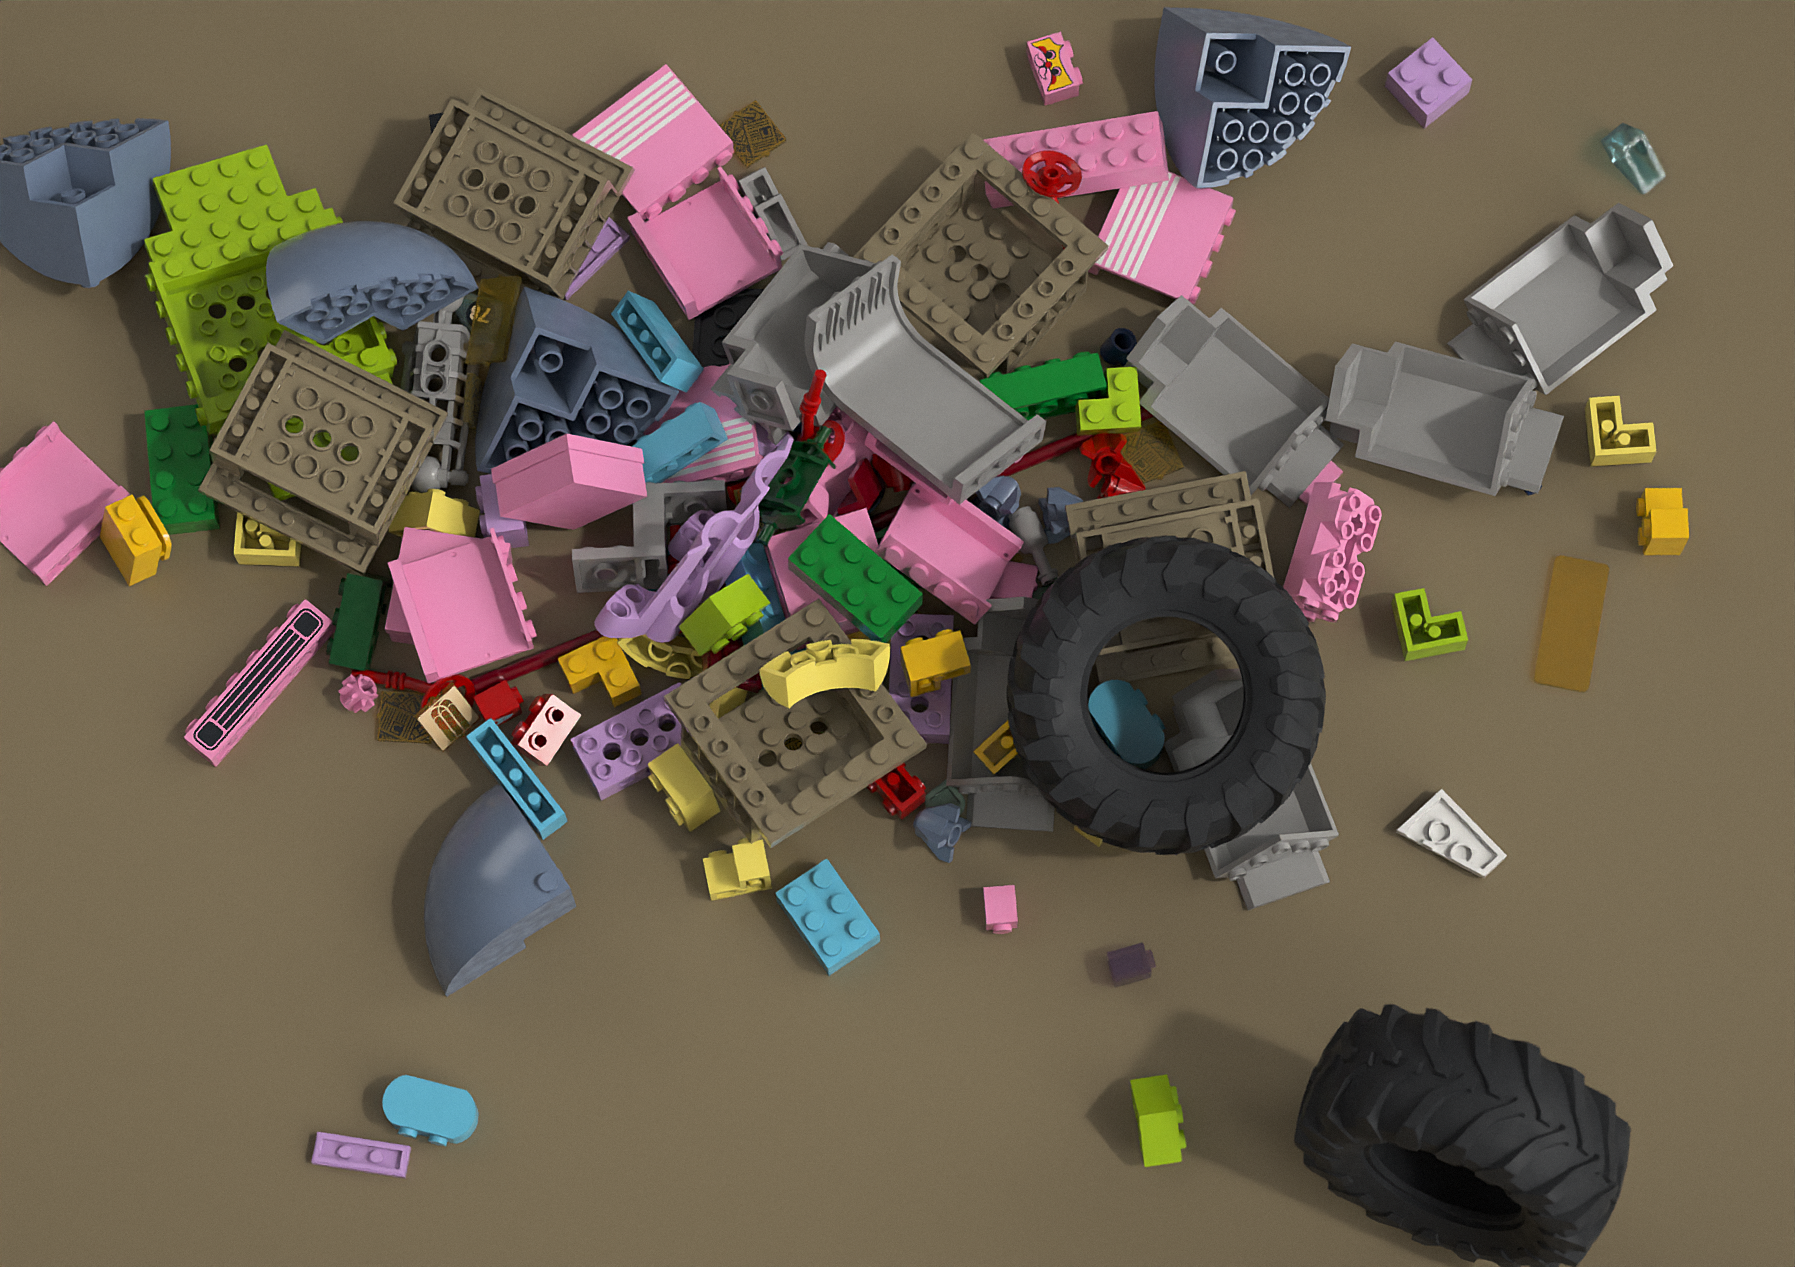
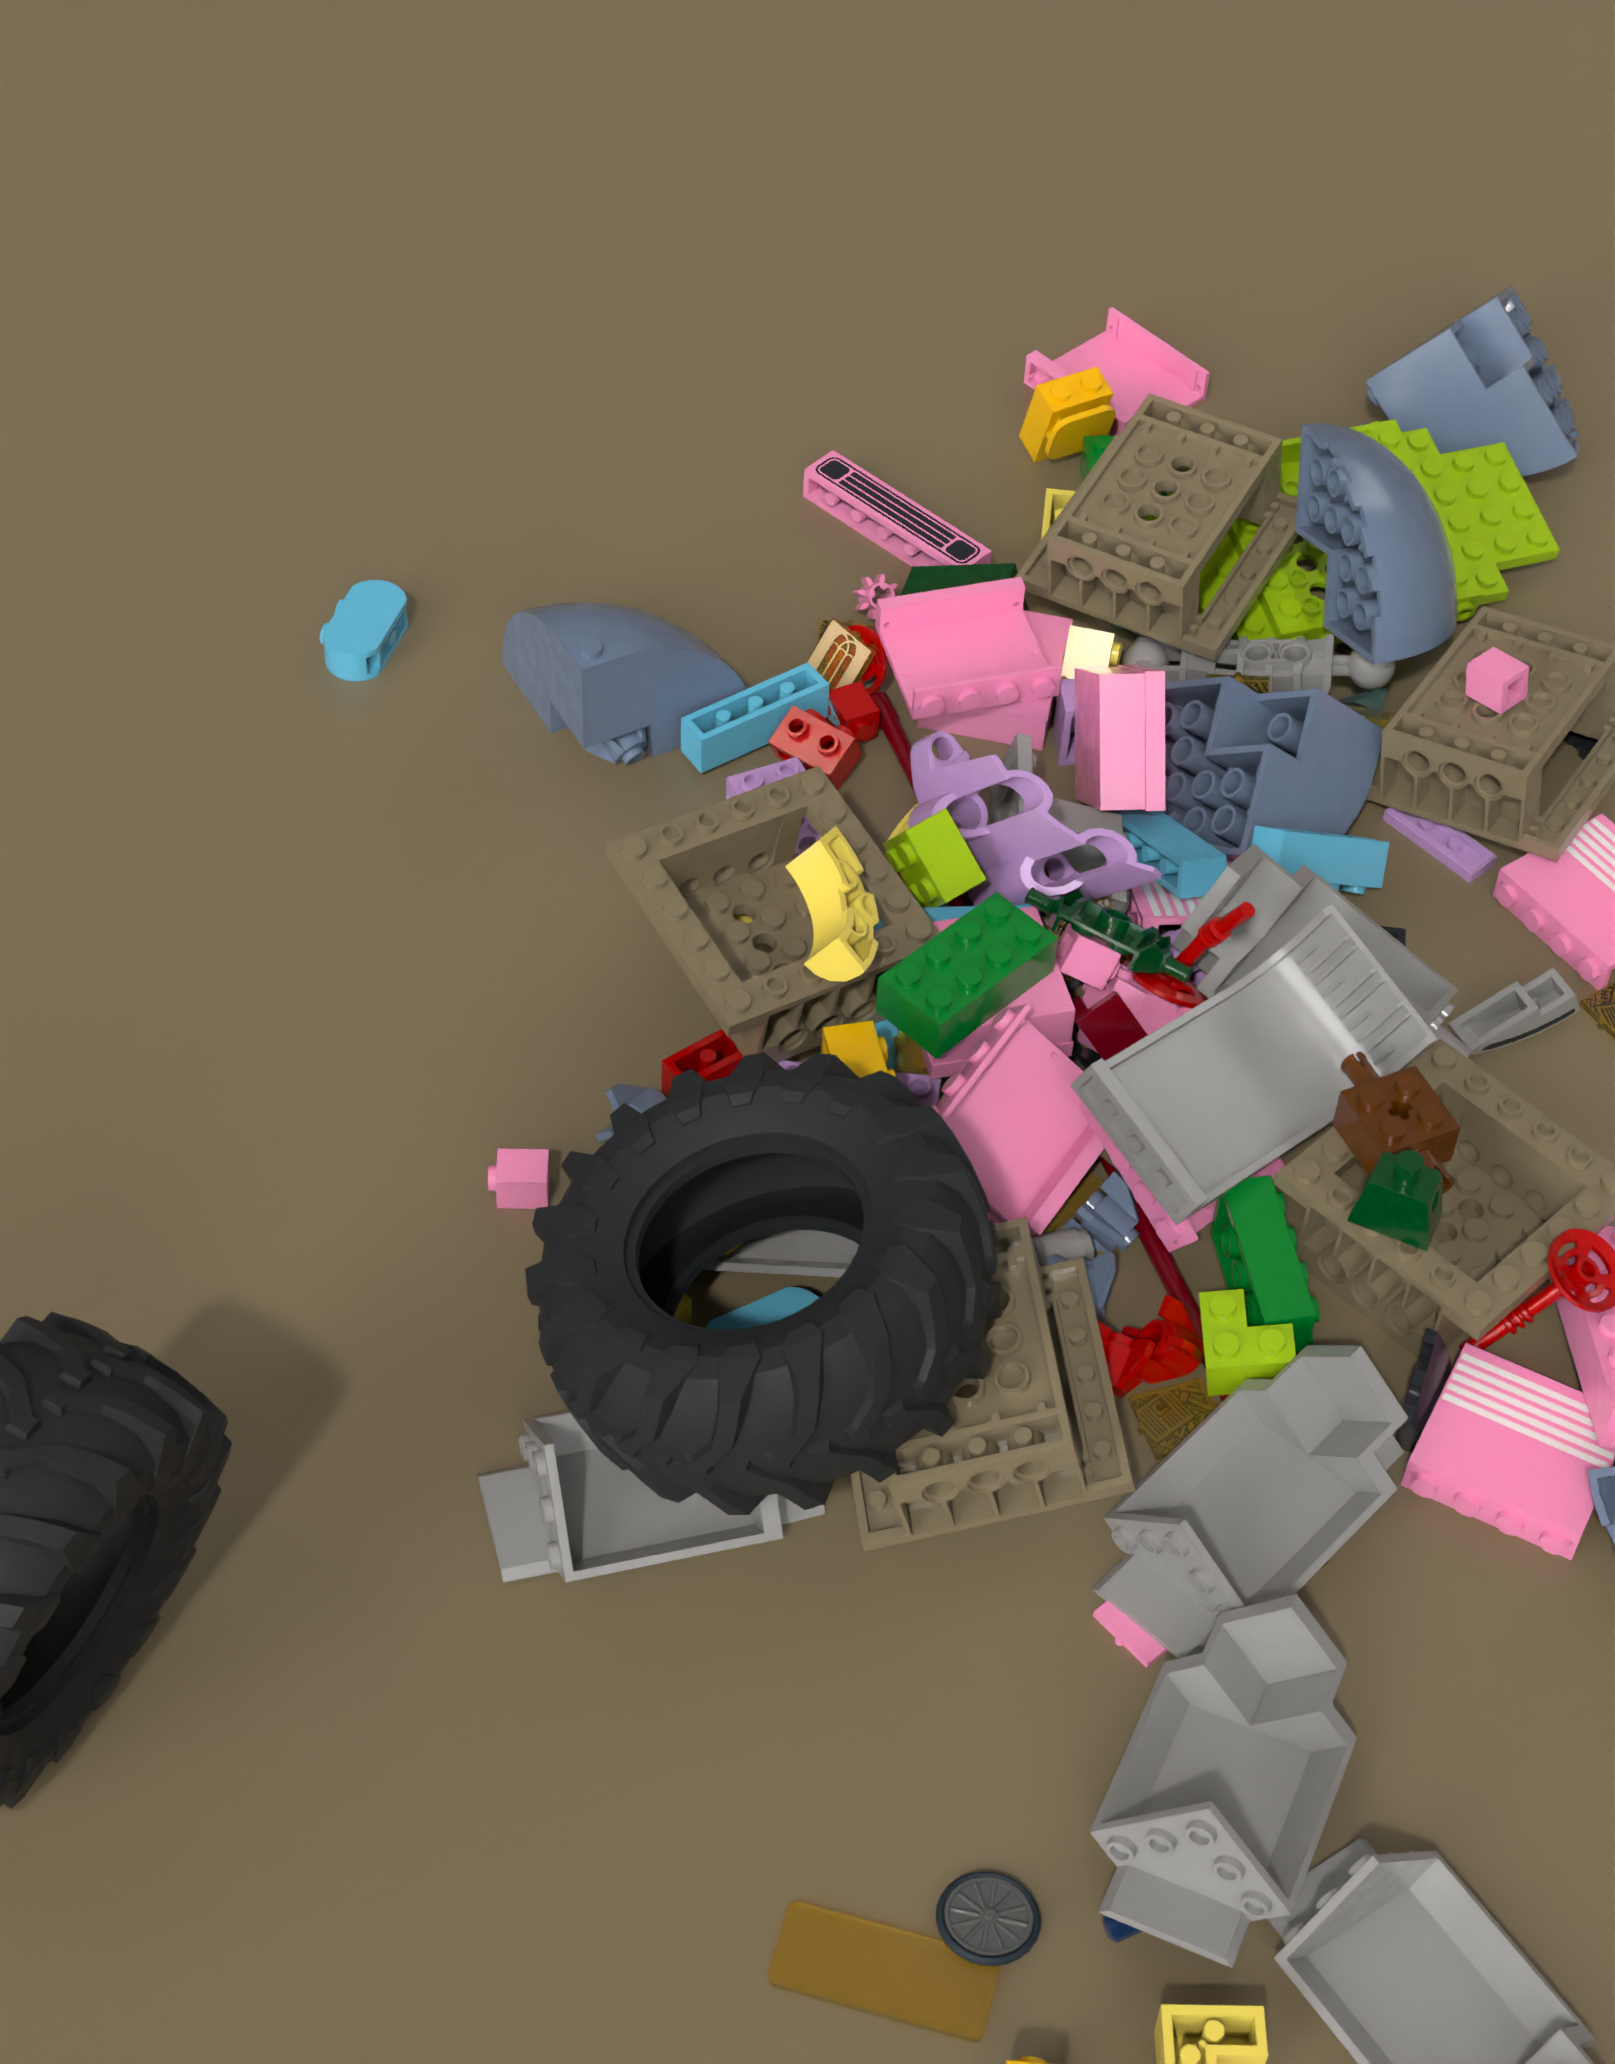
camera: 90 degrees right, 25 degrees down
(361, 1155) = (327, 580): lavender tile -> none
(505, 195) = (1497, 680): none -> bright pink brick
(601, 662) = (886, 797): yellow brick -> none
(708, 246) = (1459, 928): bright pink panel -> none
(737, 872) = (611, 917): light yellow brick -> none
(828, 917) = (537, 997): medium azure brick -> none
(961, 271) = (1394, 1116): none -> reddish brown brick
(1025, 287) = (1401, 1199): none -> dark green torso
(1130, 964) = (417, 1315): clear purple brick -> none
(1137, 296) = (1425, 1389): none -> black slope
(1157, 1120) = (191, 1310): lime brick -> none
(1324, 564) = (1009, 1605): bright pink brick -> none
(1422, 634) = (878, 1726): lime brick -> none
(1452, 835) = (554, 1747): white wing -> none
(1532, 563) = (988, 1918): none -> dark grey wheel

